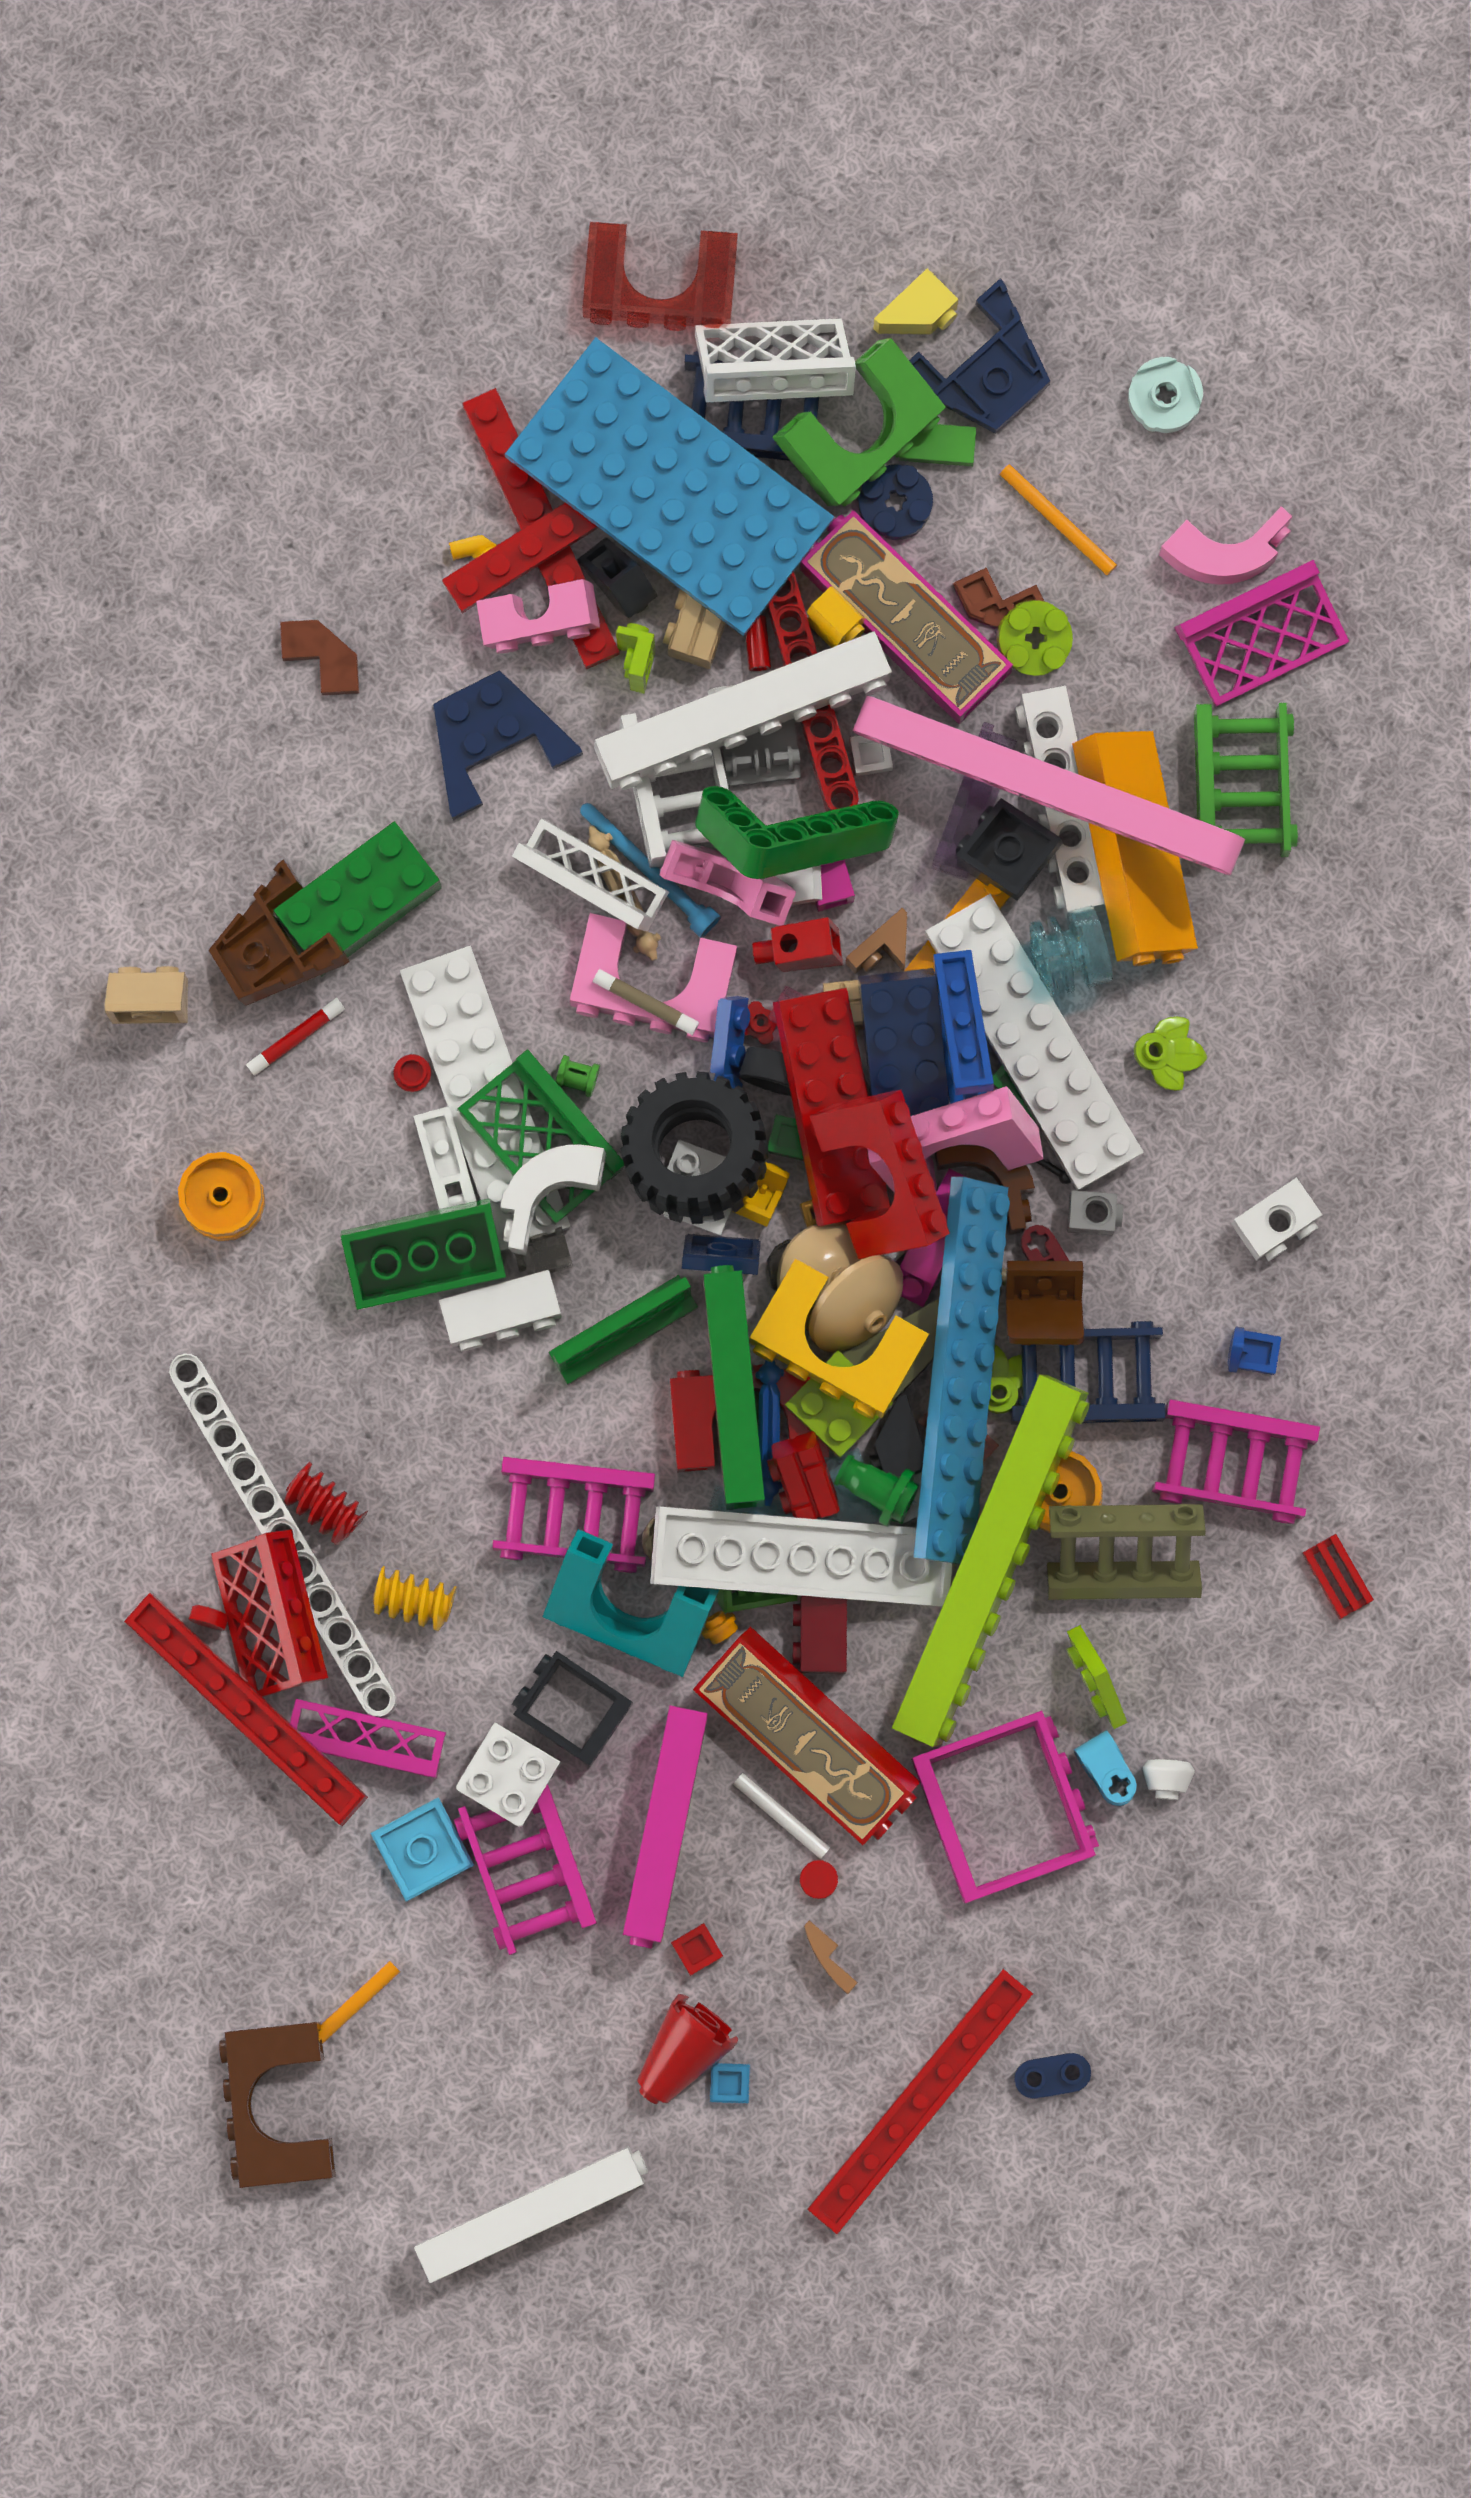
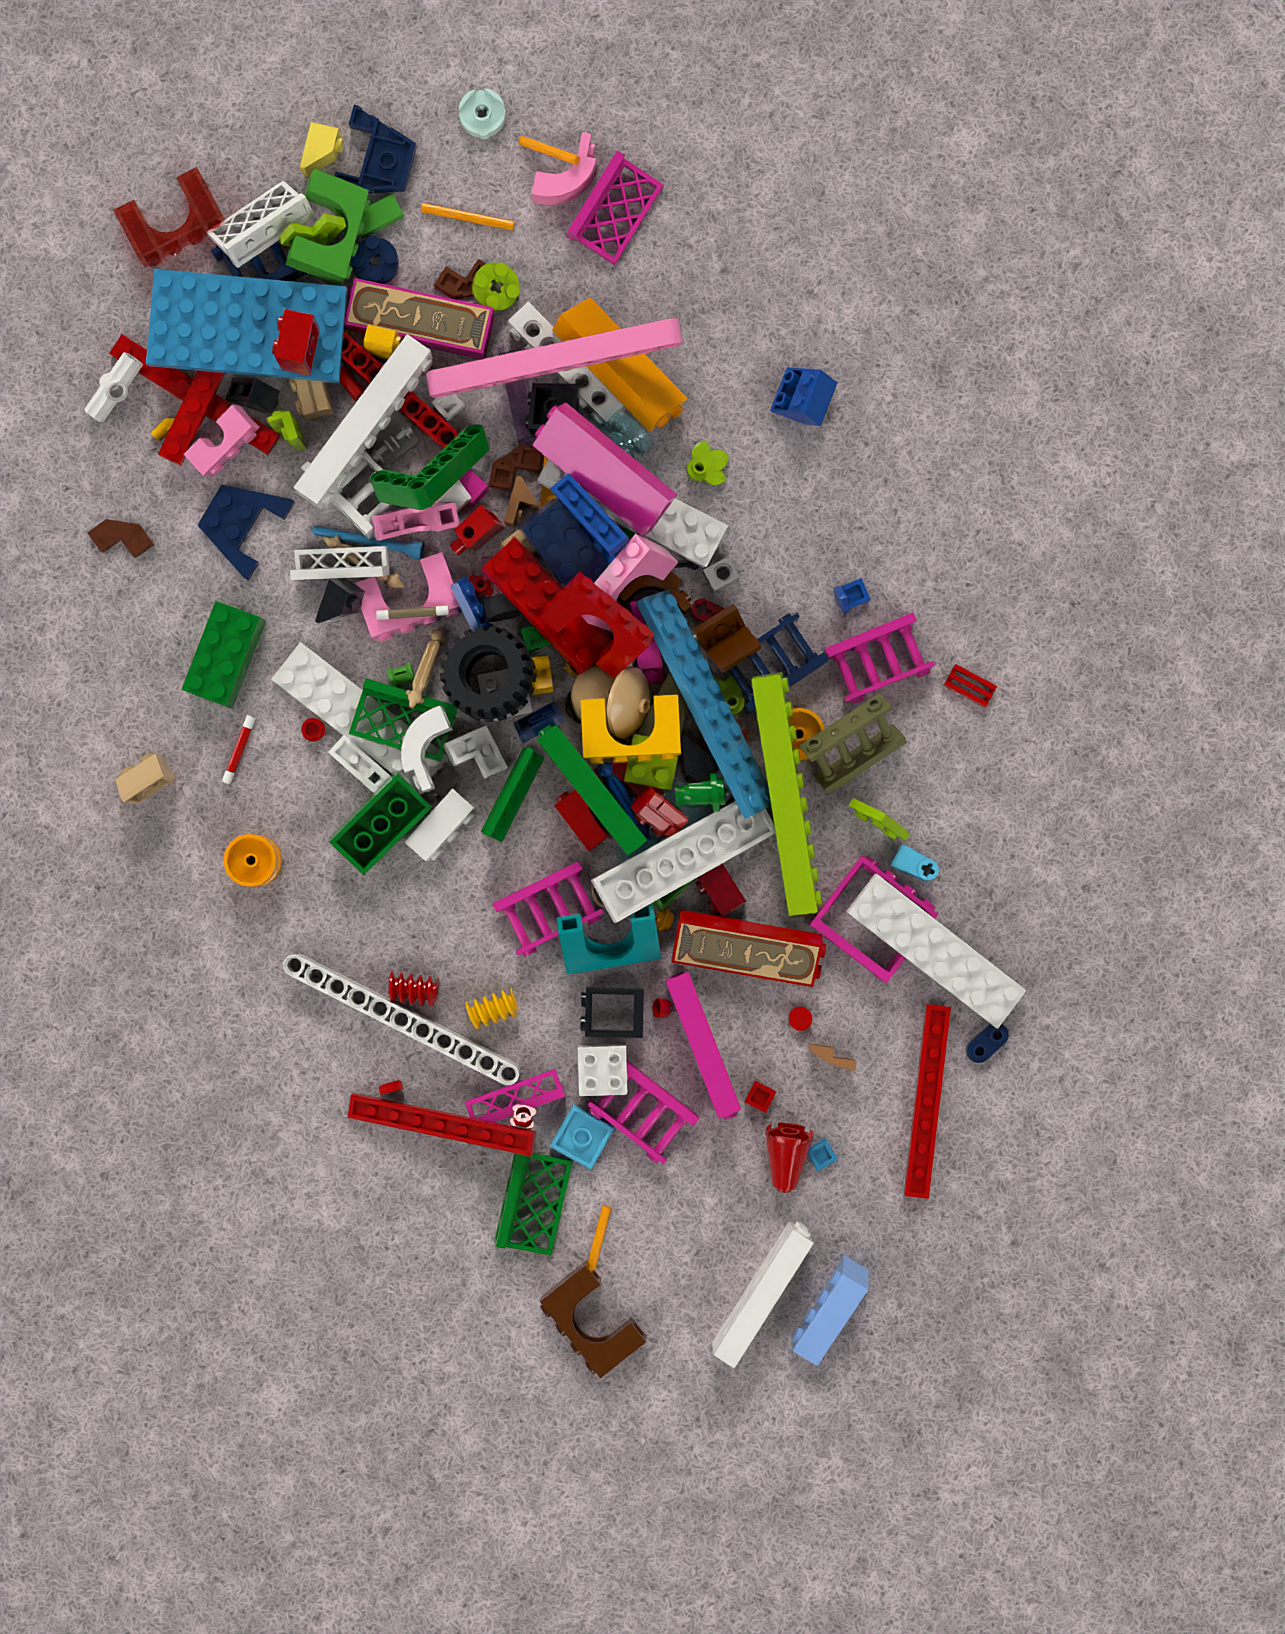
camera: 30 degrees left, 5 degrees up
(259, 954) = (188, 717): reddish brown wing -> none
(275, 1871) = (512, 1203): none -> green fence
(288, 1608) = (428, 1058): red fence -> none
(367, 1759) = (528, 1112): none -> plate
(440, 453) = (120, 375): none -> white piece
(558, 925) = (339, 600): none -> black slope
(607, 2300) = (831, 1310): none -> light blue wedge
(617, 1085) = (426, 667): none -> tan wheel
(619, 1234) = (479, 746): none -> white plate
(640, 1744) = (661, 1008): none -> red hinge
(721, 553) = (296, 342): none -> red brick
(781, 1816) = (759, 997): white bar -> none
(841, 424) = (321, 232): none -> lime plate
(922, 885) = (504, 469): none -> copper tile
(1021, 973) = (603, 468): none -> dark pink brick
(1060, 1903) = (936, 951): none -> white plate
(1167, 1777) = (949, 848): white cone -> none
(1211, 763) = (631, 295): bright green fence -> none
(1222, 502) = (549, 150): none -> light orange bar
(1289, 1201) = (823, 503): white brick -> none
(1359, 1043) = (804, 395): none -> blue slope

